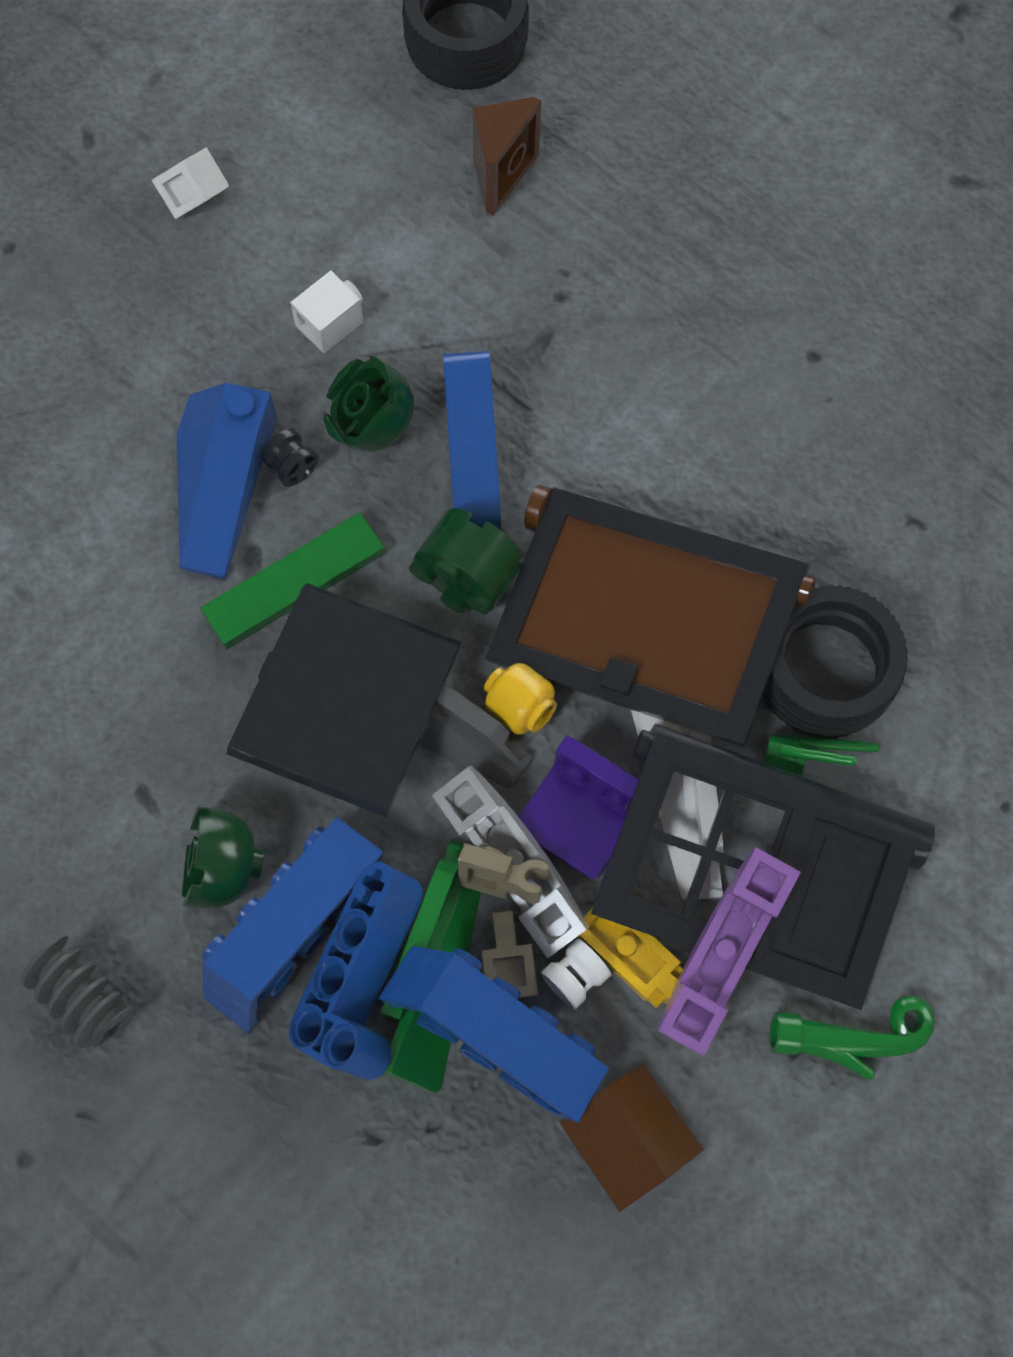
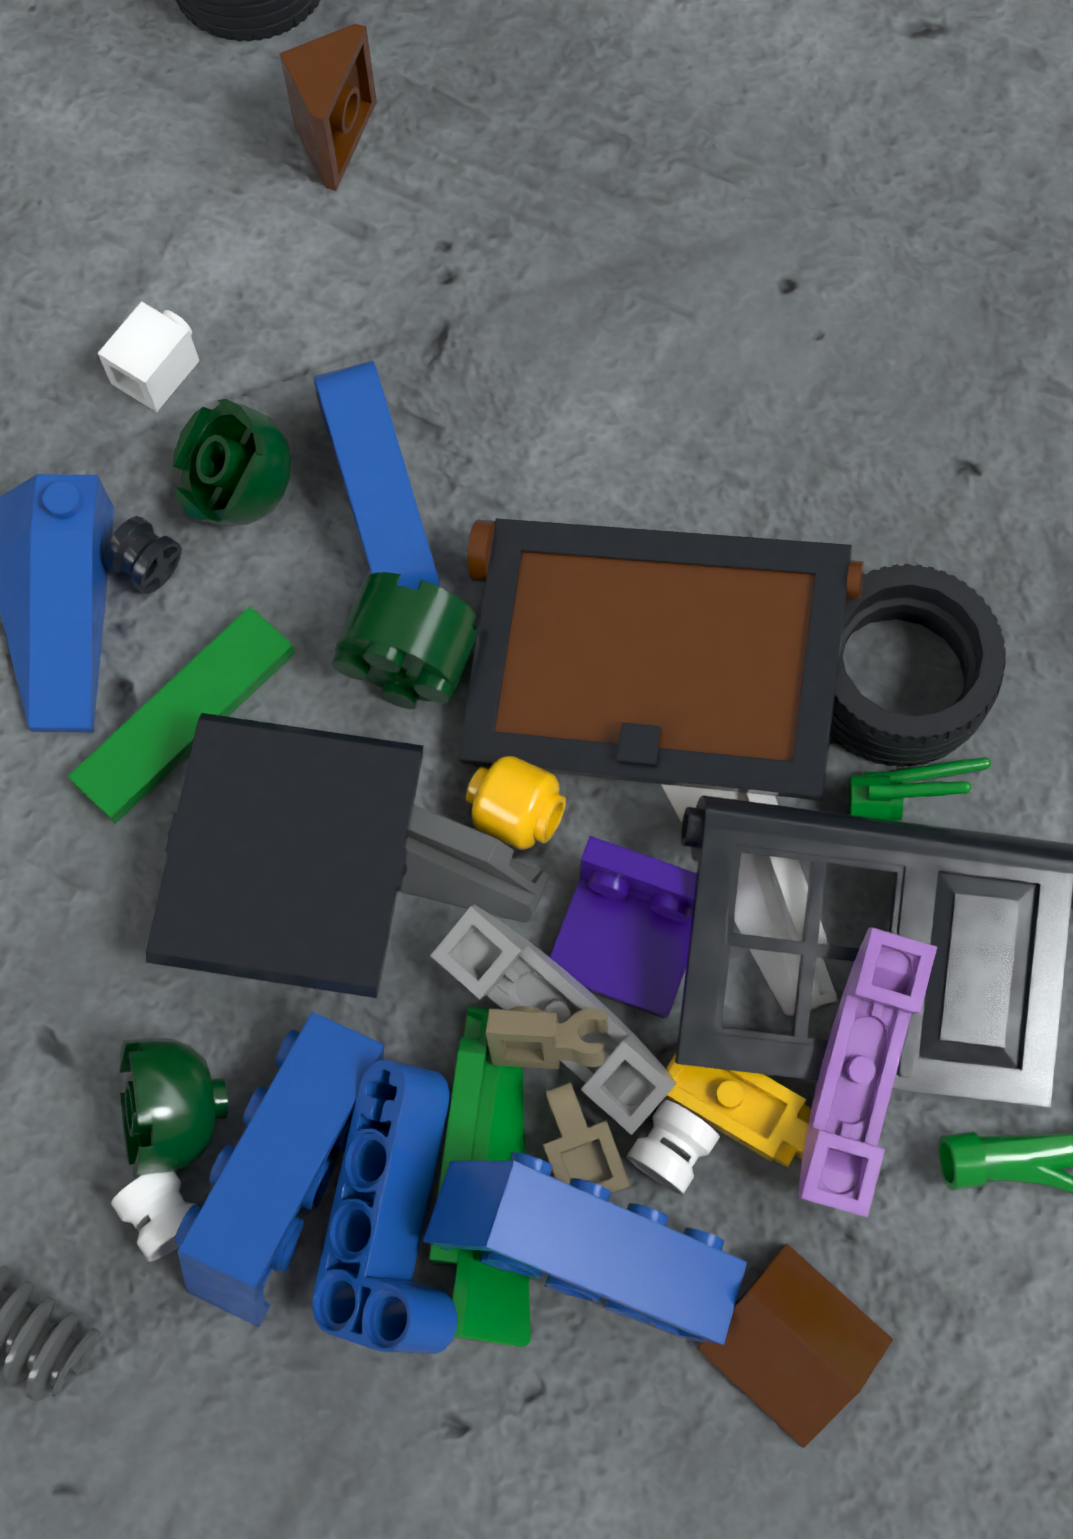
camera: 10 degrees left, 0 degrees up
(193, 932) = (155, 1211): none -> white wheel

